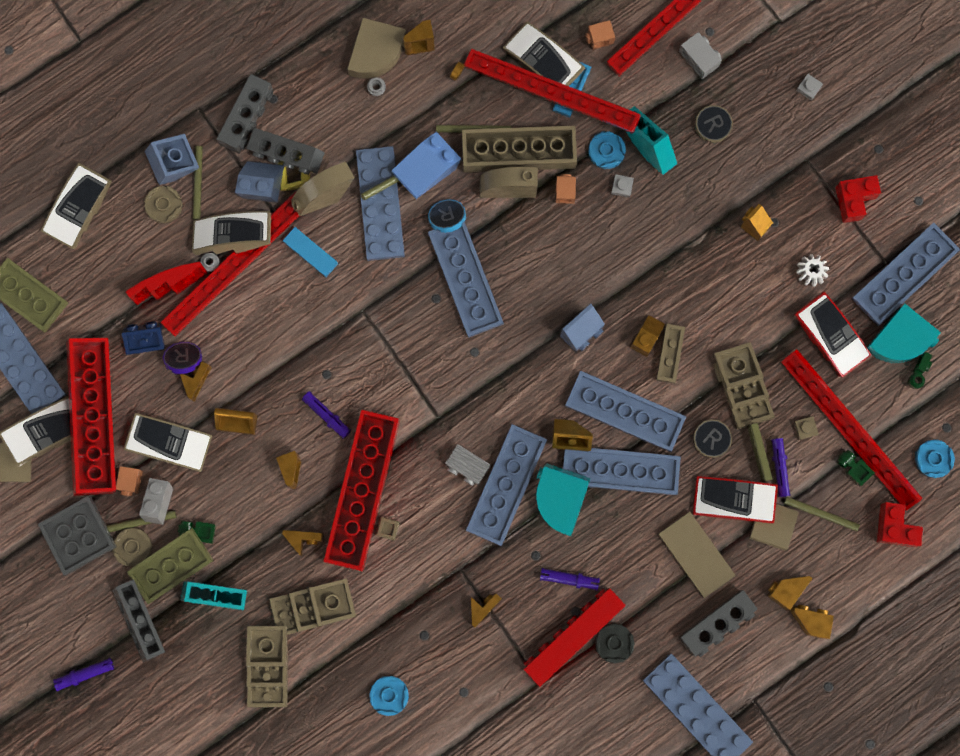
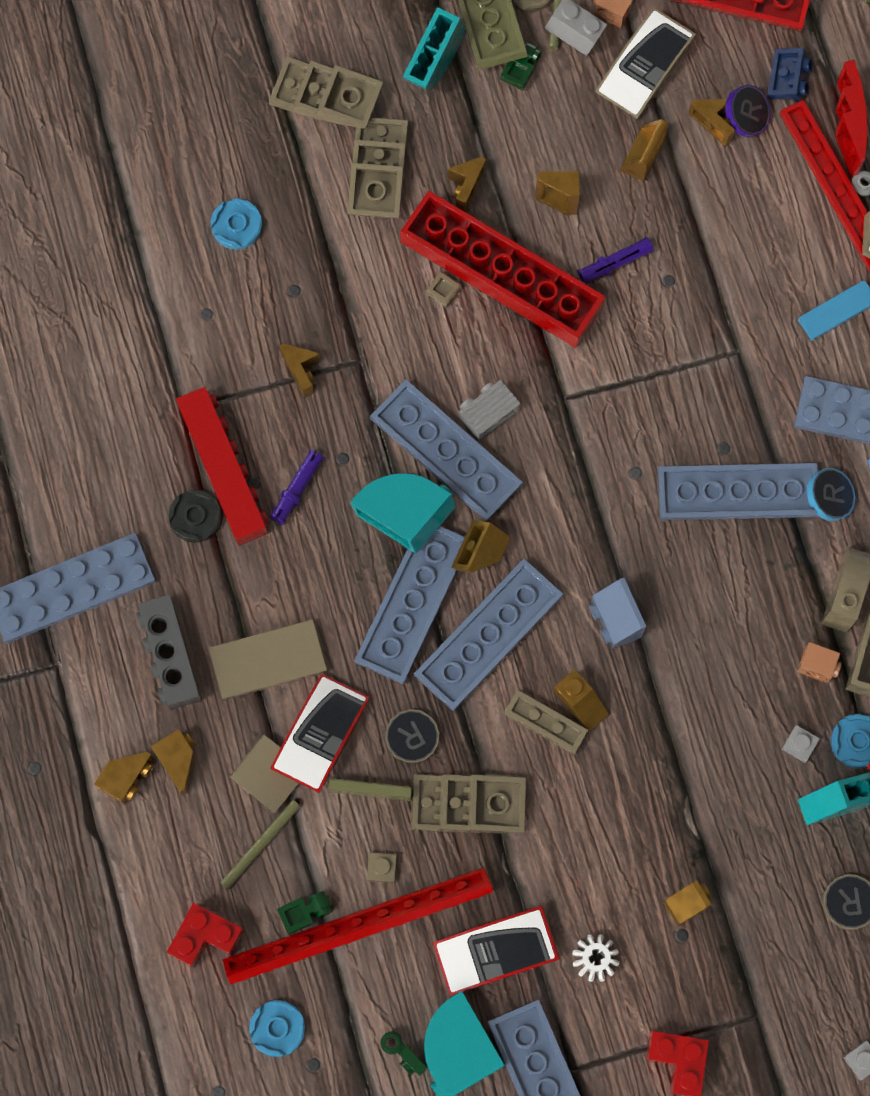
camera: 110 degrees right, 5 degrees down
(780, 467) = (340, 811): dark purple pin -> none

